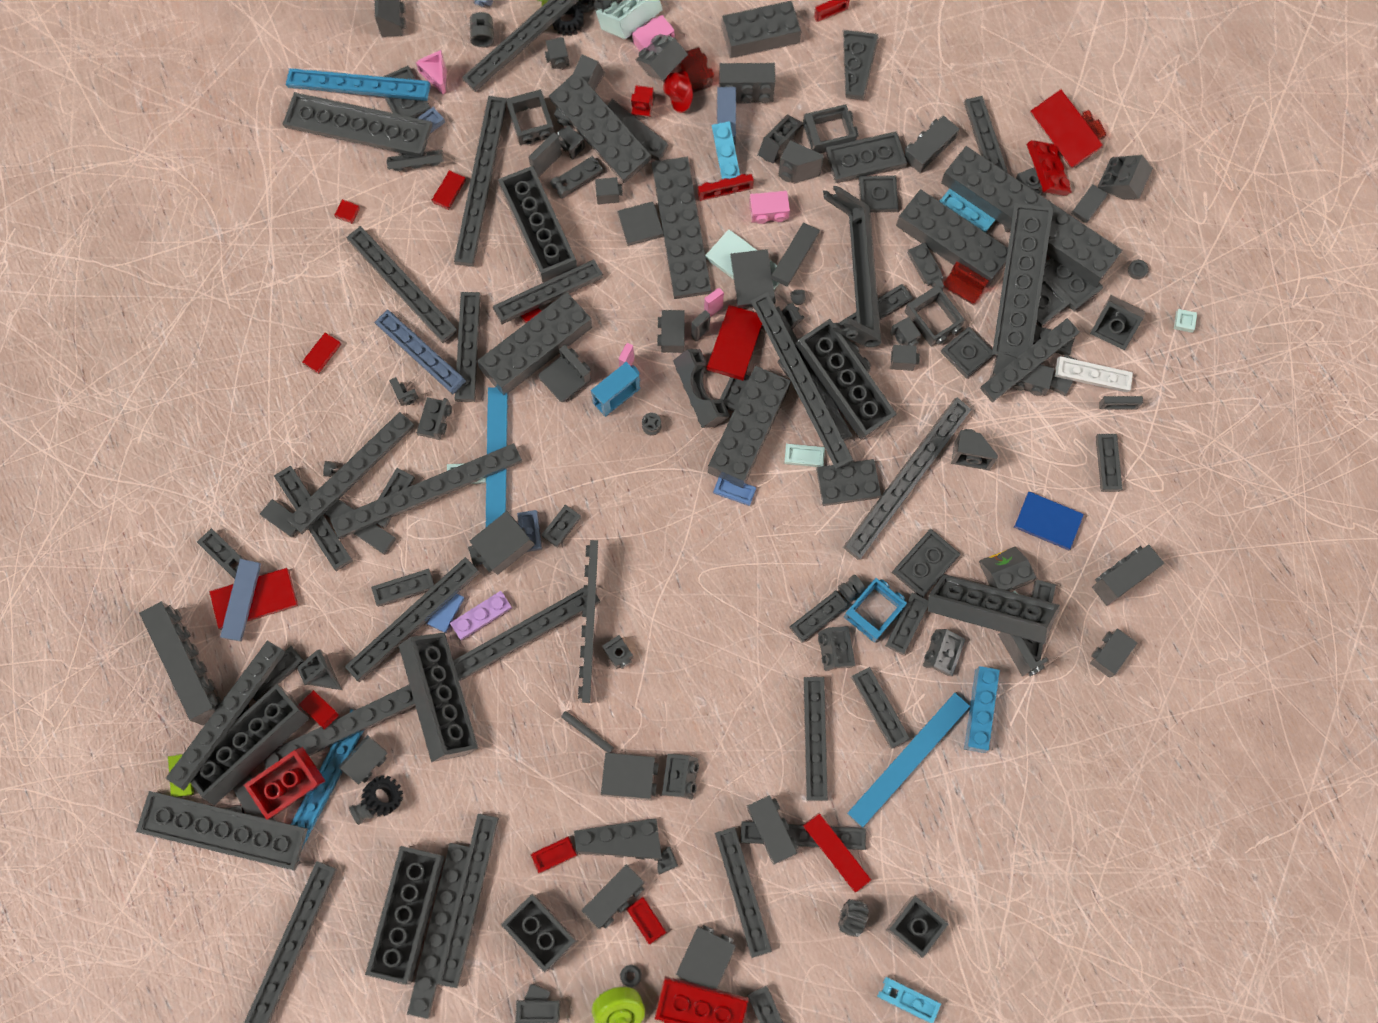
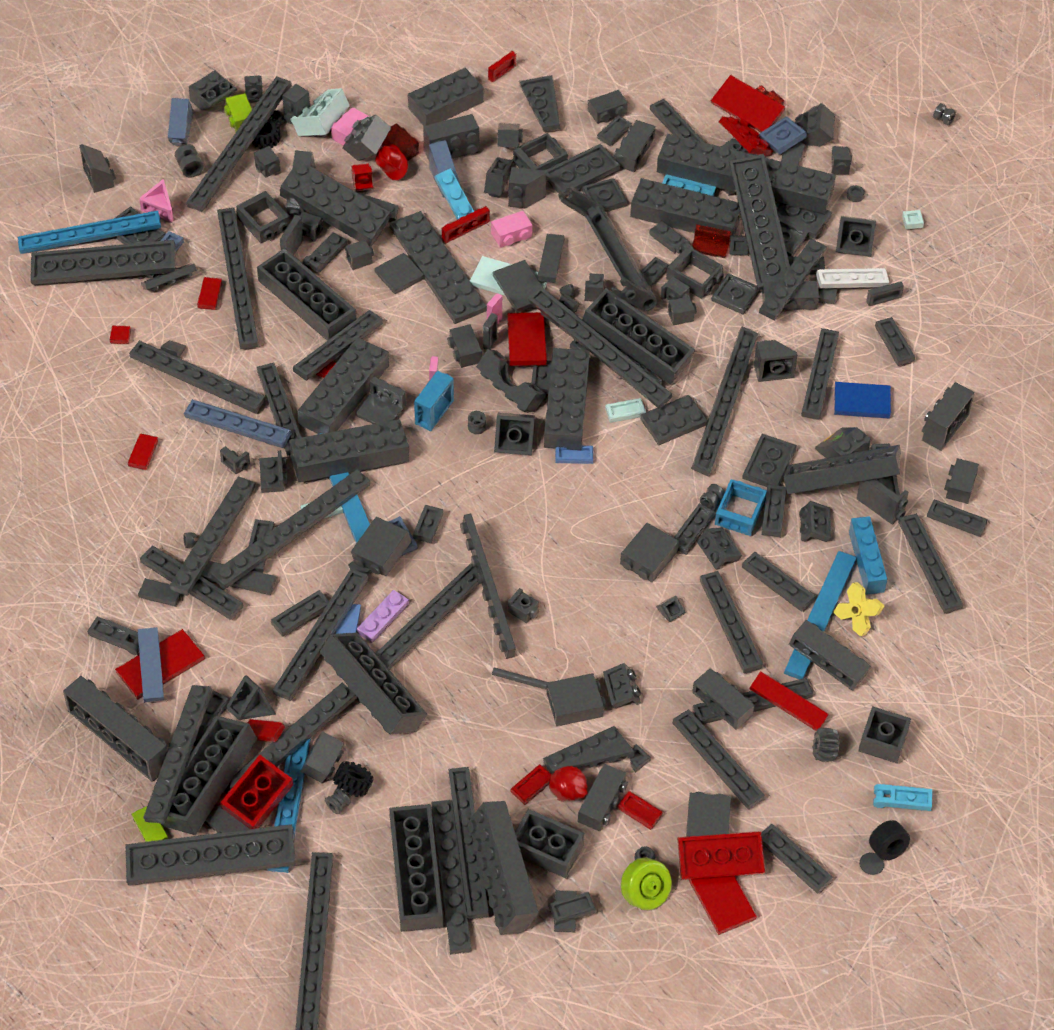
camera: 20 degrees left, 20 degrees down
(391, 244) = (173, 348): none -> dark grey slope
(483, 951) = (502, 868): none -> dark grey brick
(513, 419) = (349, 450): none -> dark grey brick
(585, 873) = (568, 784): none -> red hair
(683, 449) = (514, 433): none -> dark grey slope
(762, 701) = (671, 608): none -> dark grey slope
(763, 632) = (649, 552): none -> dark grey brick
(806, 95) = (509, 135): none -> dark grey brick
(826, 303) = (594, 286): none -> dark grey brick
(897, 814) = (829, 655): none -> dark grey brick
(918, 118) = (614, 130): none -> dark grey tile
(921, 88) = (607, 106): none -> dark grey brick
(949, 772) = (859, 609): none -> light yellow plant
(991, 296) = (738, 245): none -> dark grey tile
(1016, 477) = (820, 374): none -> dark grey plate
(1042, 738) = (930, 563): none -> dark grey plate
(1088, 178) = (783, 135): none -> sand blue plate
(1091, 692) = (957, 518): none -> dark grey tile
(1137, 225) = (841, 160): none -> dark grey bracket
(1269, 201) = (945, 114): none -> dark grey wheel

